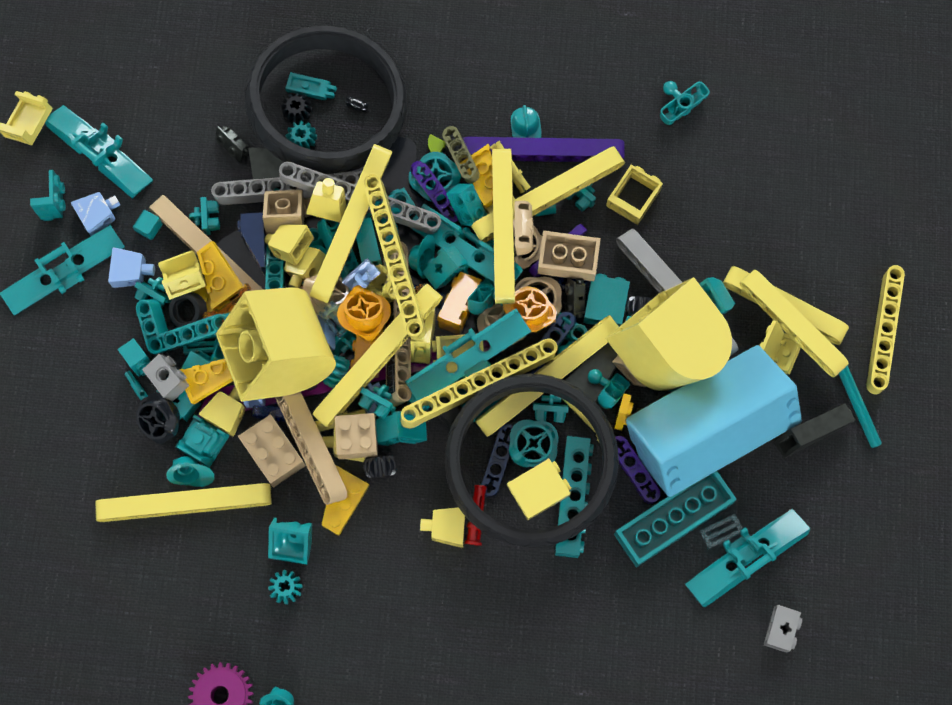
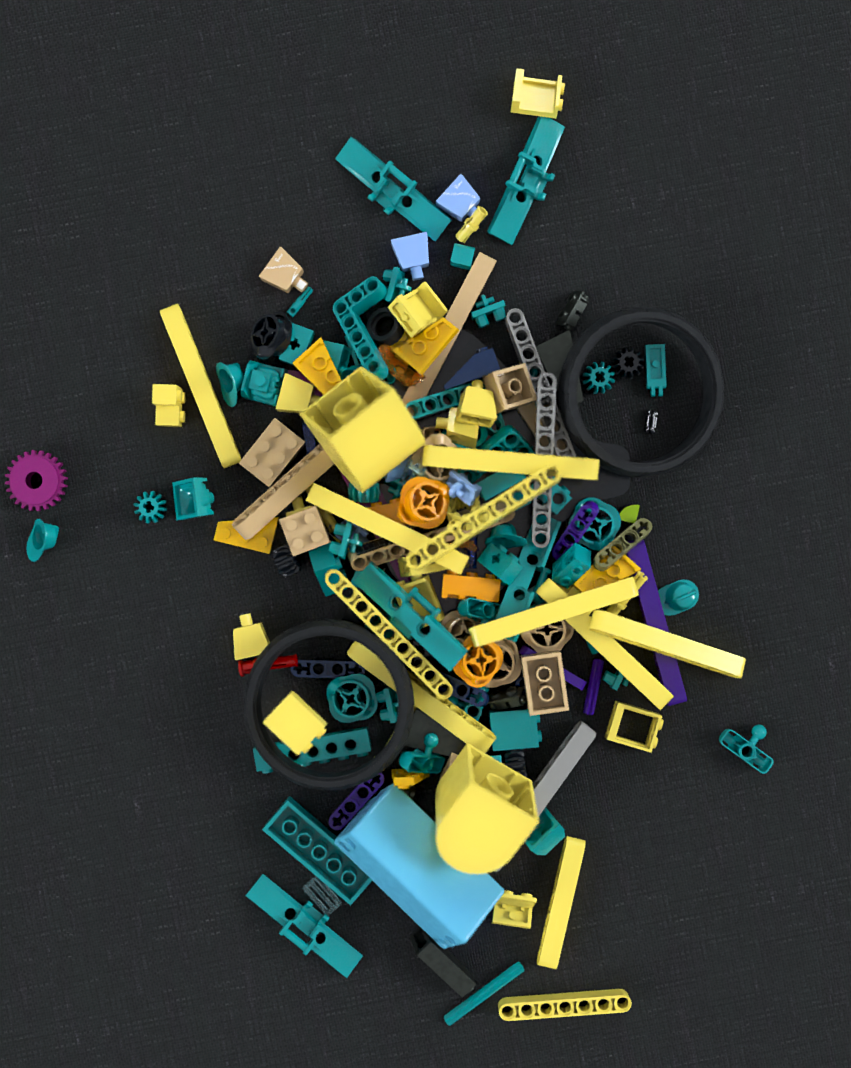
camera: 75 degrees right, 15 degrees up
(51, 206) = (457, 159): teal bracket -> none
(103, 391) = (283, 272): none -> tan torso
(121, 206) = (471, 224): none -> light yellow pin
(134, 356) = (322, 294): teal brick -> none
(157, 371) = (309, 320): light grey brick -> none
(186, 536) = (168, 405): none -> light yellow brick
(327, 201) = (526, 431): light yellow torso -> none
(523, 227) = (556, 632): tan piece -> none
(564, 140) = (667, 643): none -> light yellow beam
(587, 220) = (593, 686): none -> dark purple axle
(775, 637) = (253, 968): light grey brick -> none
(794, 323) = (540, 917): light yellow beam -> none

